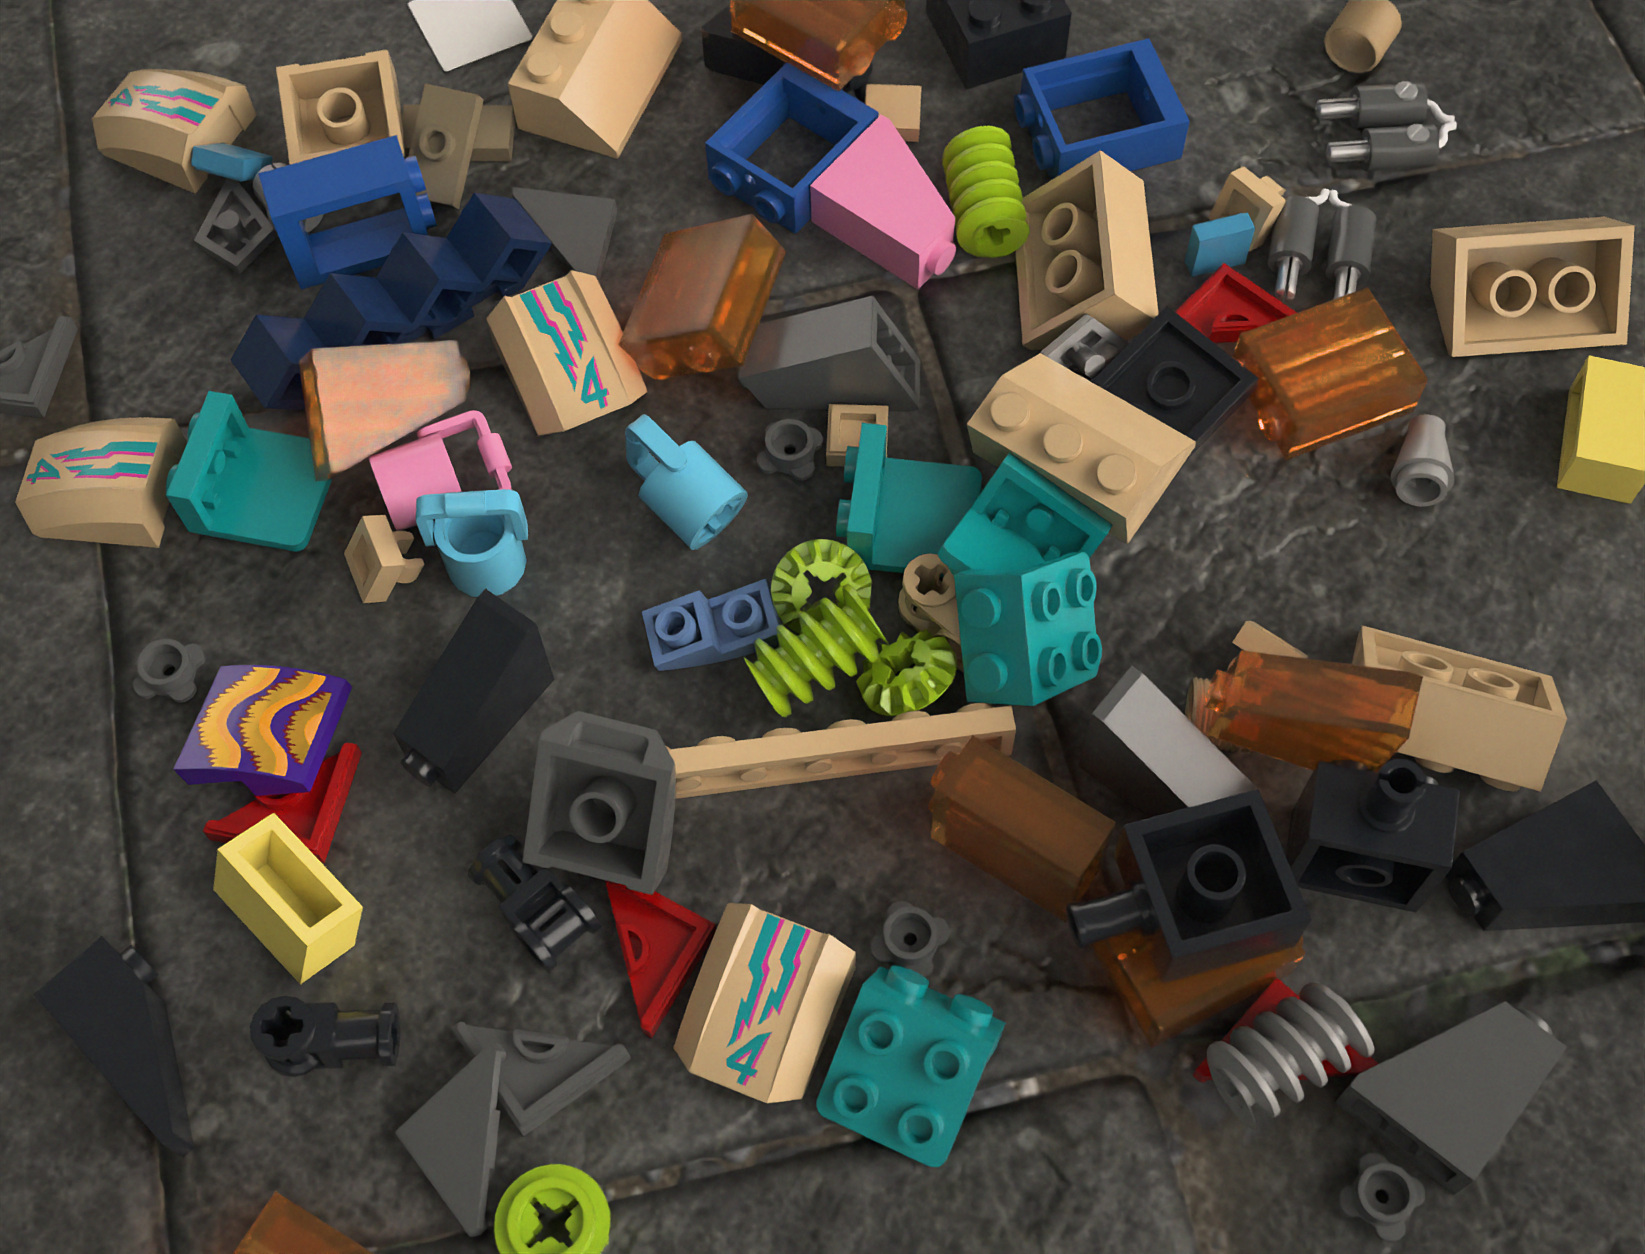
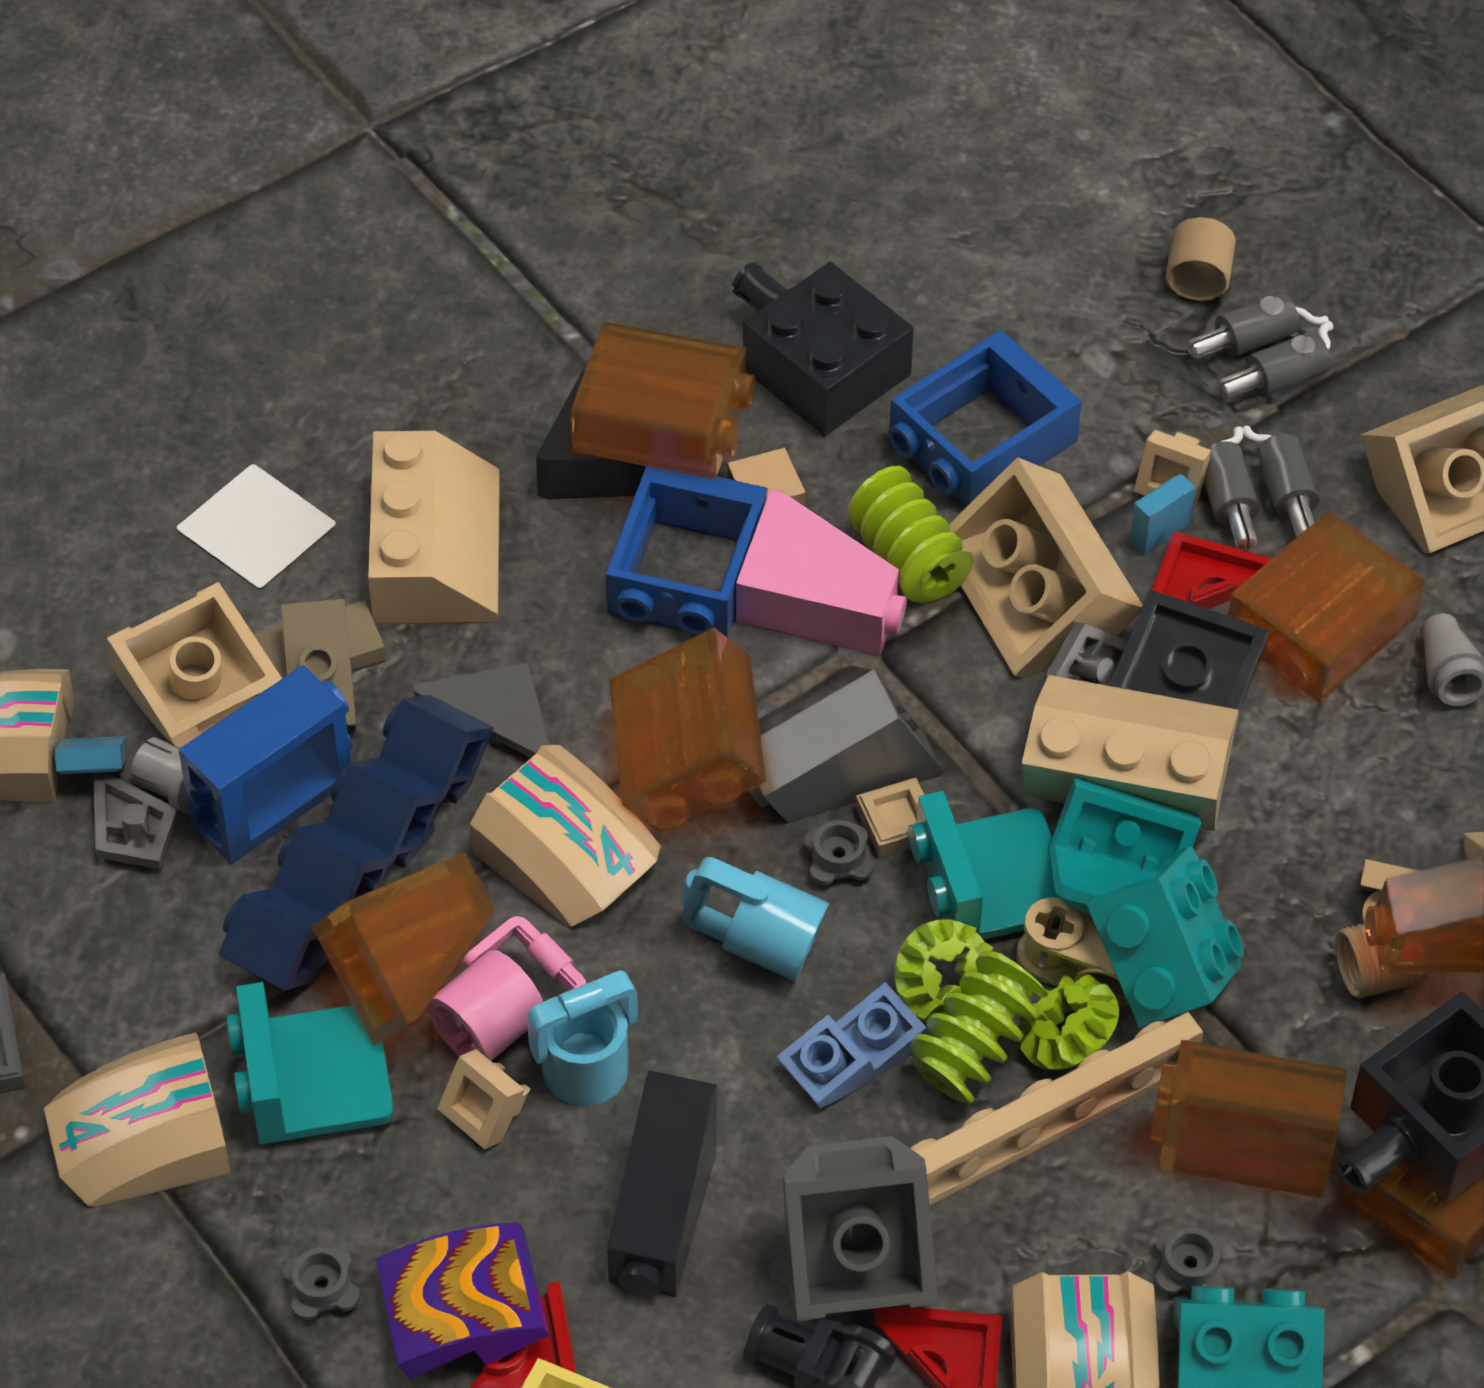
camera: 25 degrees left, 10 degrees down
(1154, 752) = (1338, 1007): slope -> none

